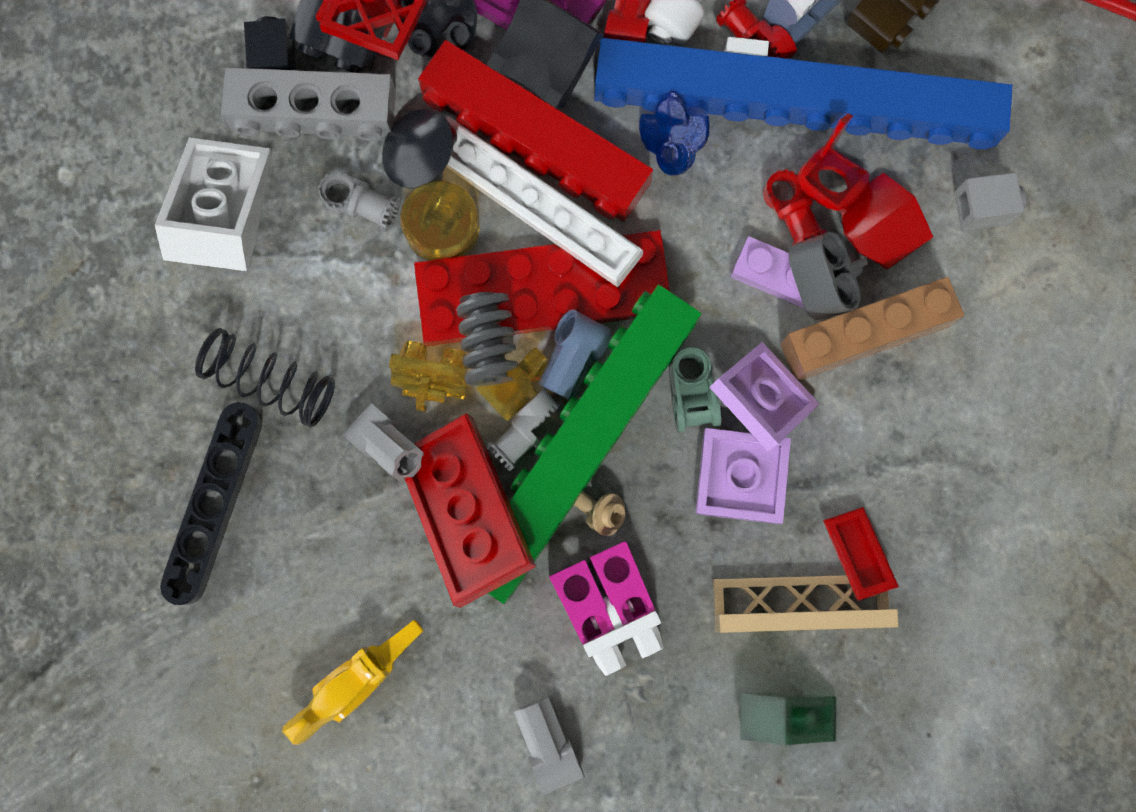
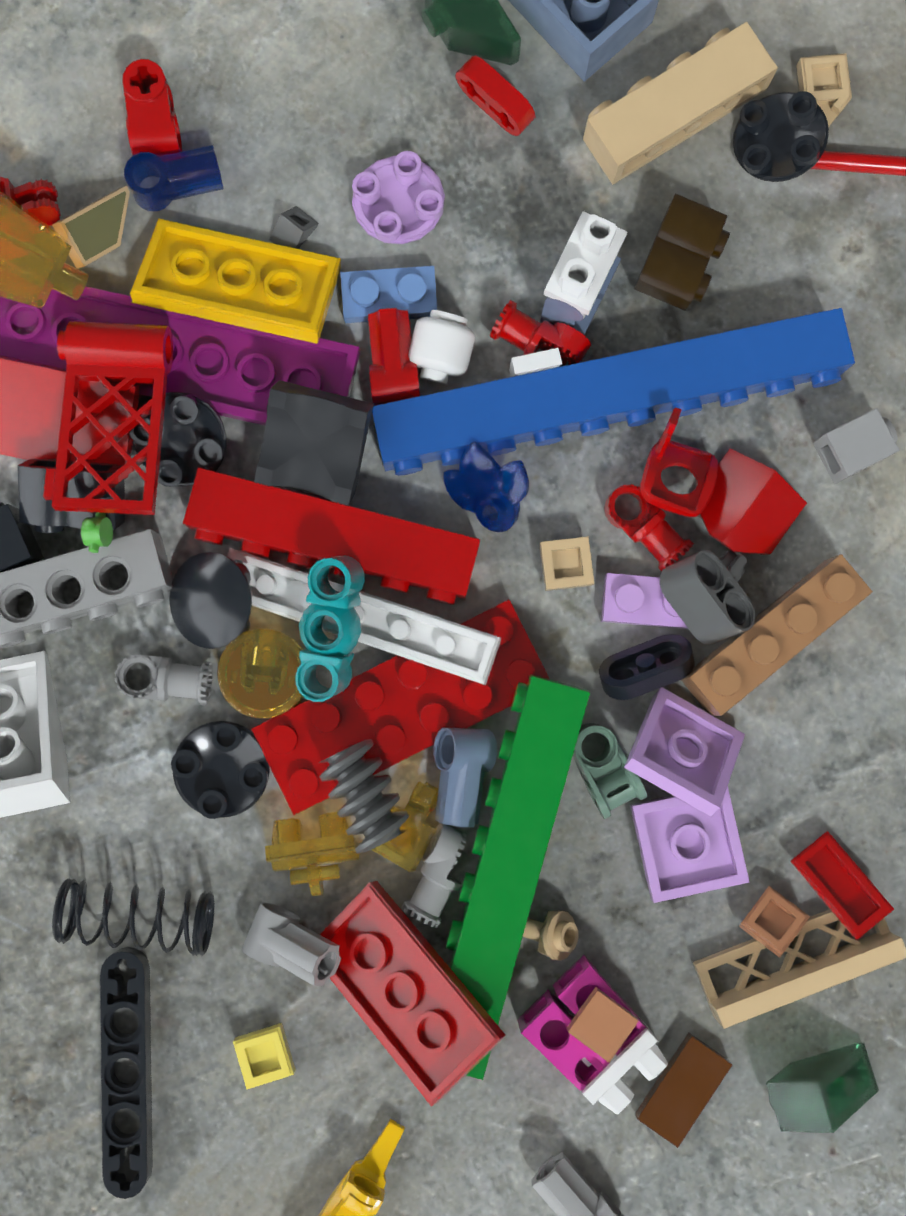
camera: 20 degrees left, 5 degrees up
(329, 531) = (264, 1056): none -> light yellow tile
(347, 60) = (96, 532): none -> bright green piece
(377, 287) = (220, 769): none -> black dish
(509, 175) = (320, 649): none -> teal piece
(619, 590) = (602, 1024): none -> nougat tile
(669, 680) = (683, 1090): none -> reddish brown tile
(717, 217) = (566, 563): none -> tan plate
(755, 321) = (646, 667): none -> black plate
(793, 565) = (774, 921): none -> nougat tile

